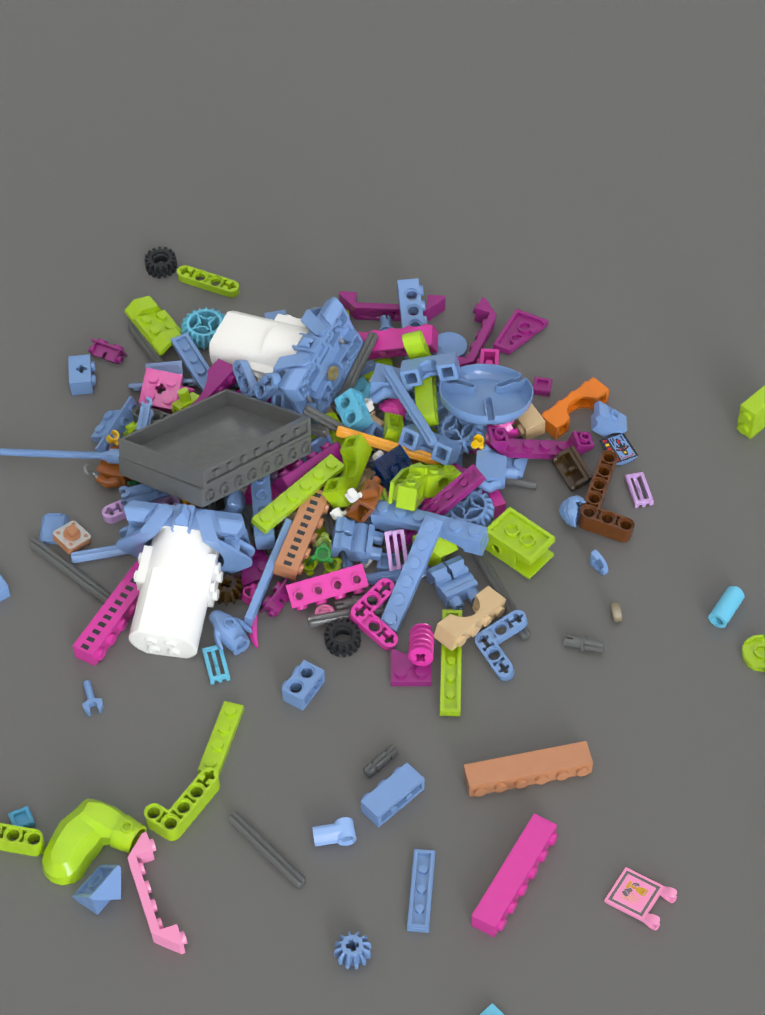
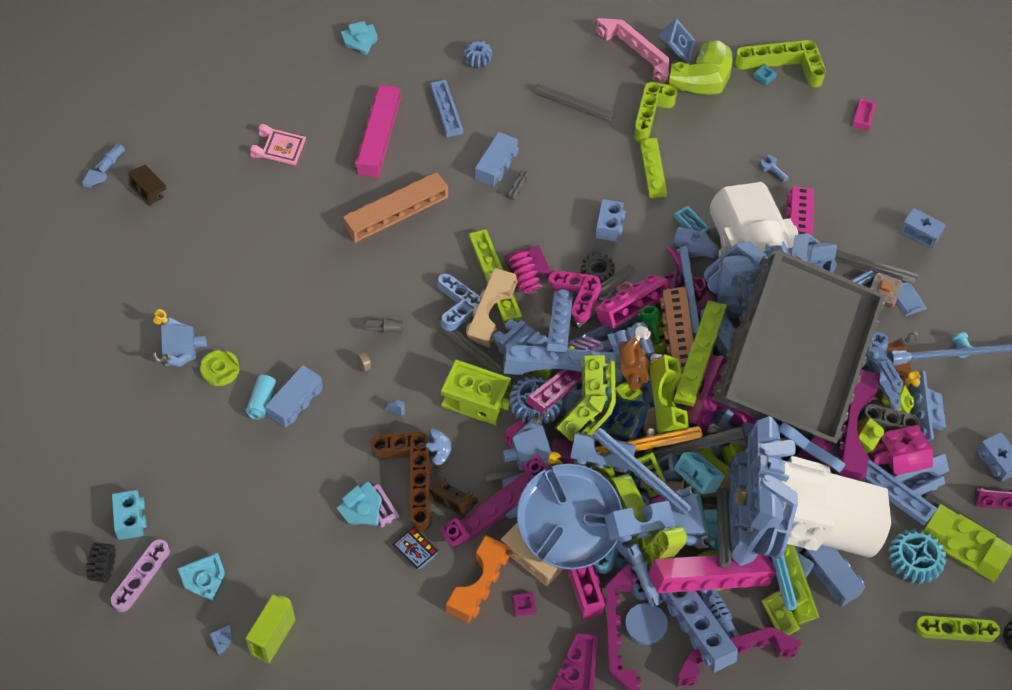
camera: 155 degrees right, 5 degrees up
(39, 468) = (961, 341): none -> medium azure bush
(340, 832) = (524, 124): light blue piece -> none
(607, 420) = (434, 566): medium blue brick -> none
(656, 486) = (361, 505): none -> medium azure plate
(693, 597) = (294, 396): none -> medium blue brick

